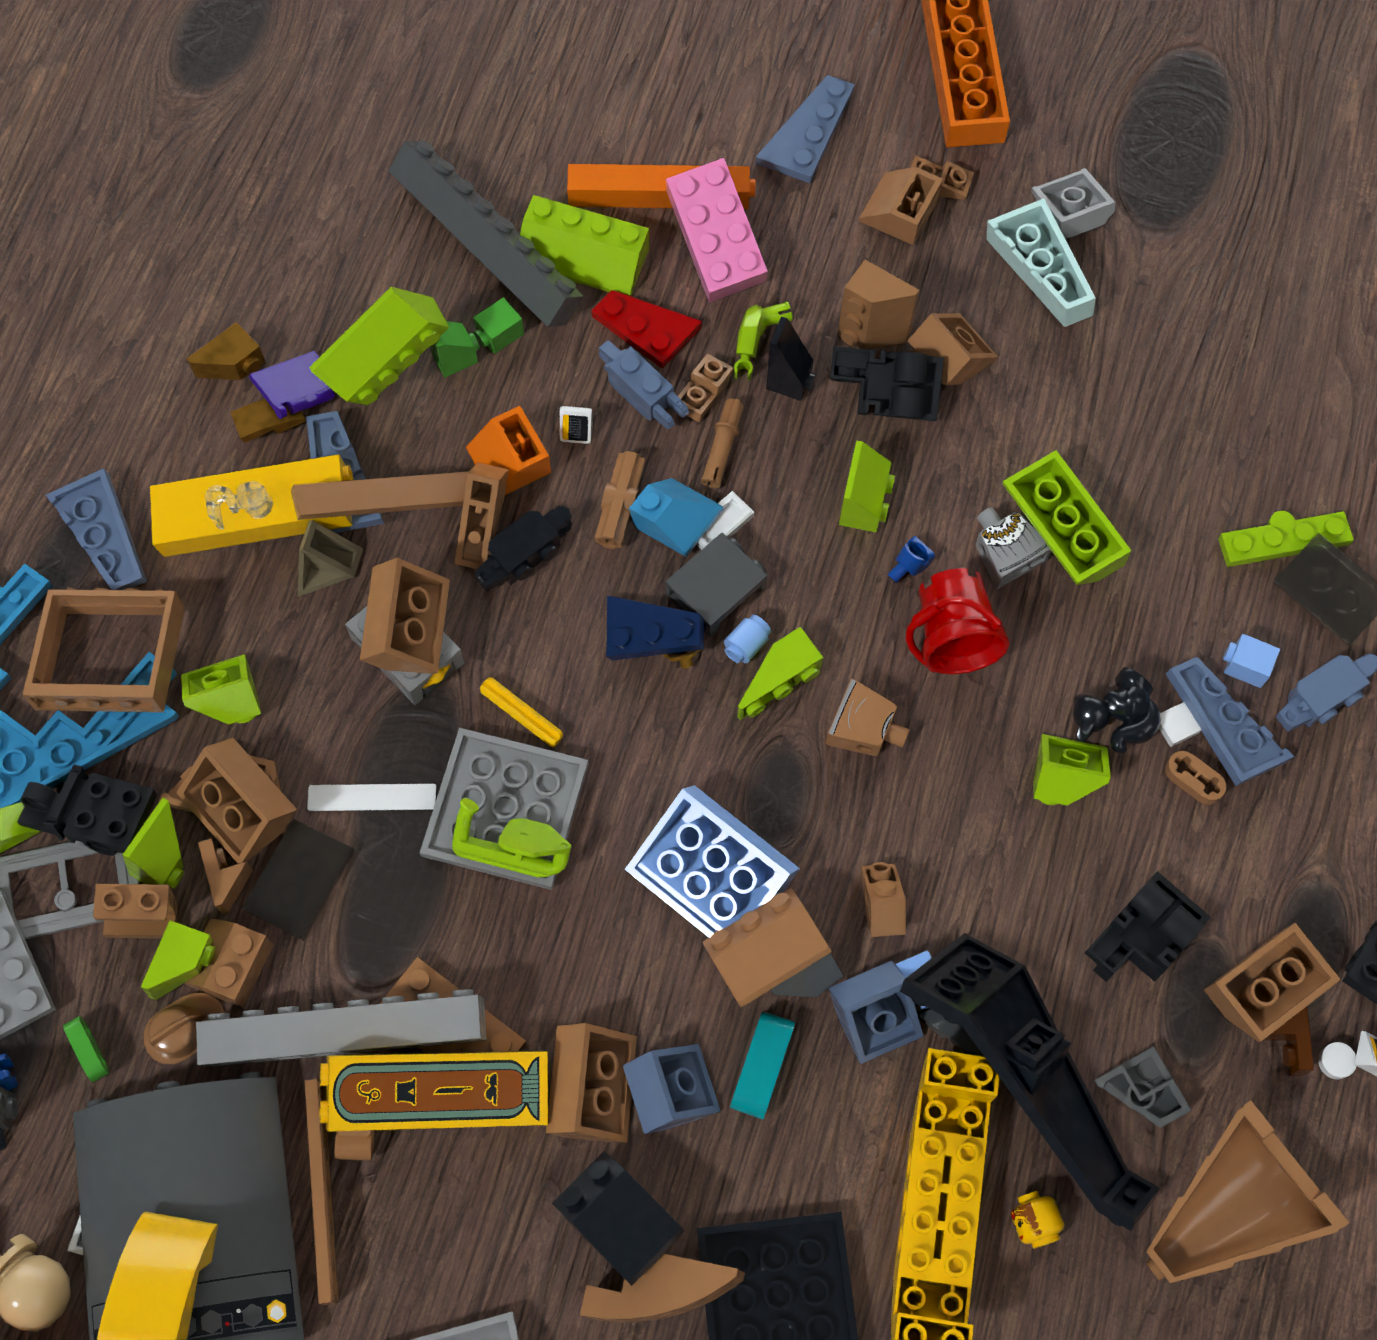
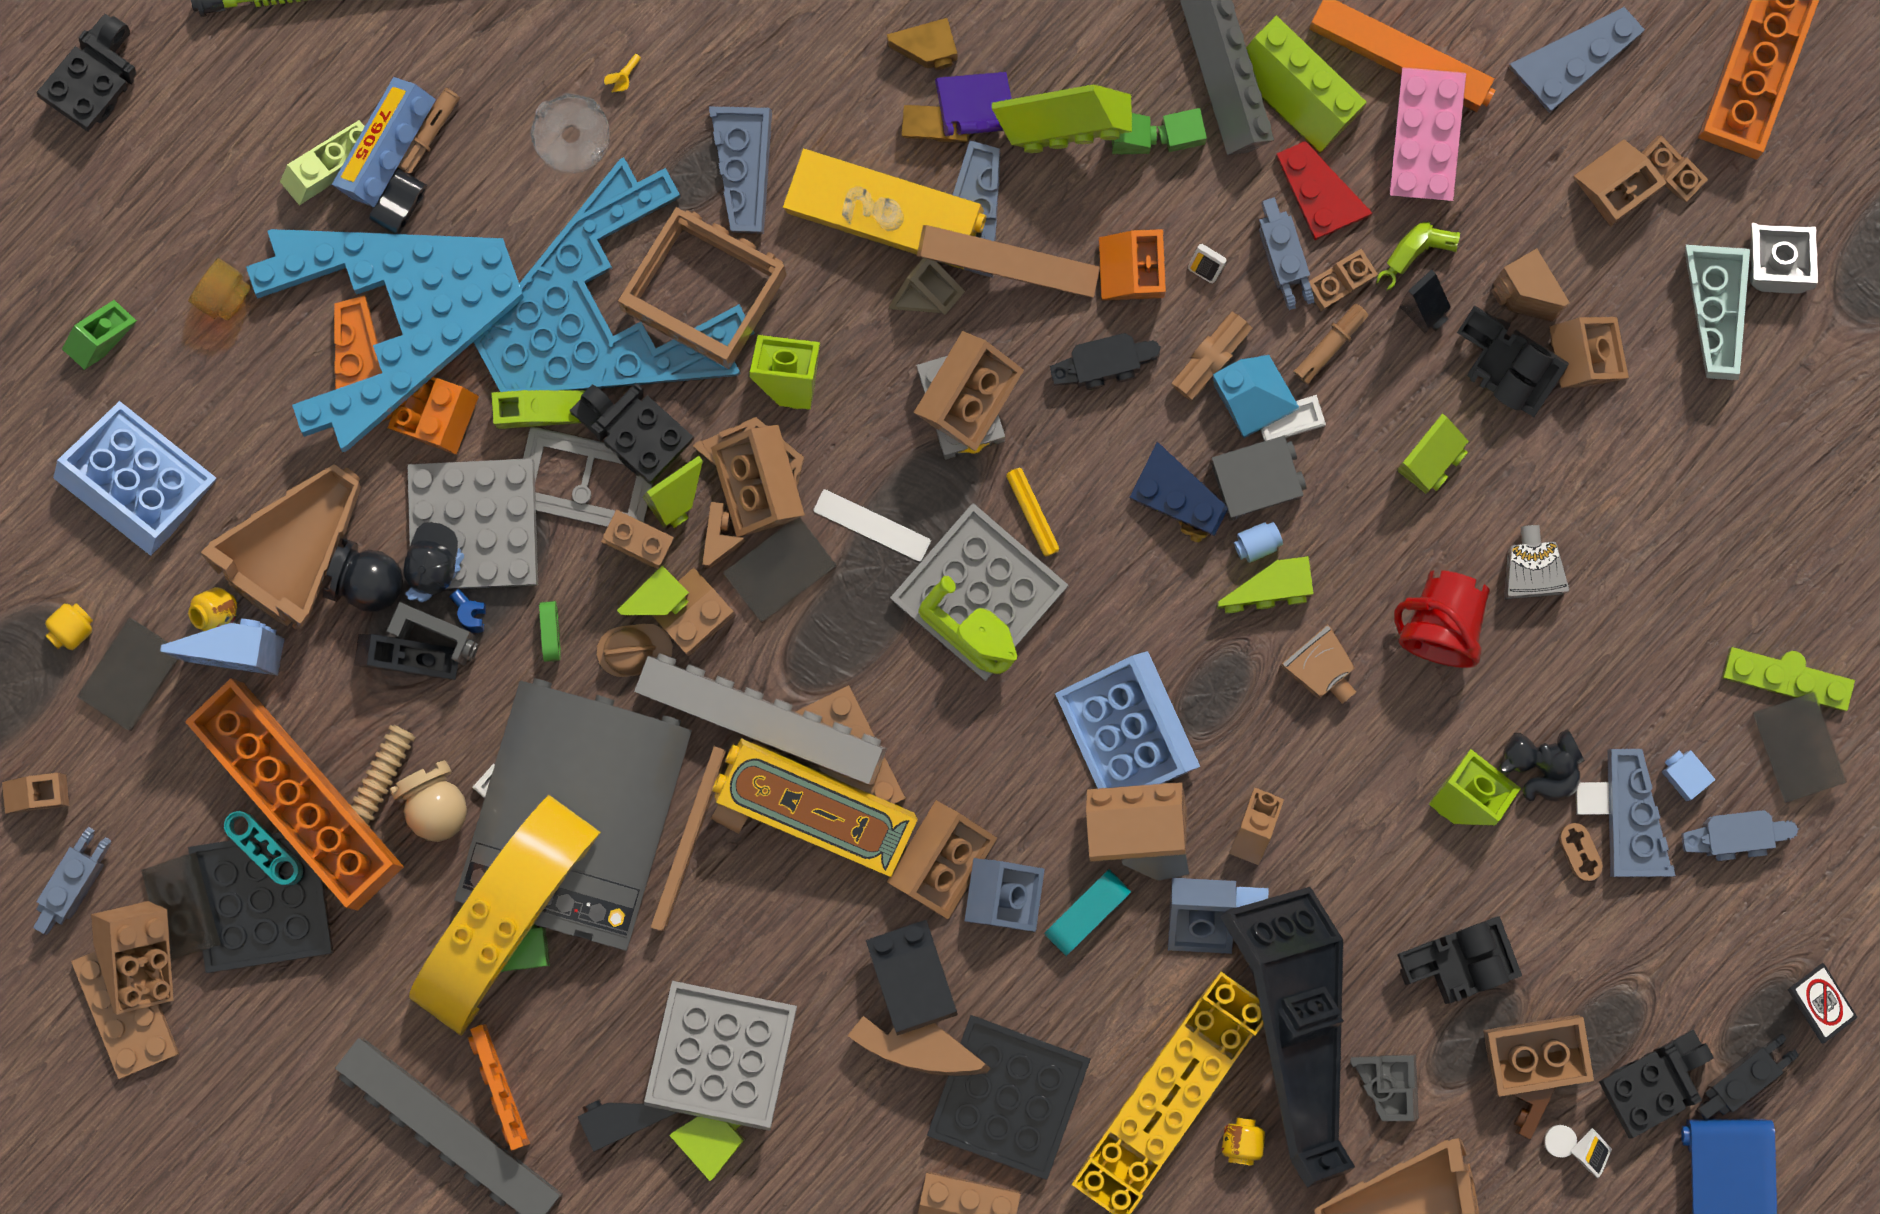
camera: 35 degrees right, 15 degrees up
(480, 513) = (1081, 314): medium nougat slope -> none
(912, 558) = (1441, 536): blue piece -> none
(1068, 519) = (1594, 571): lime slope -> none

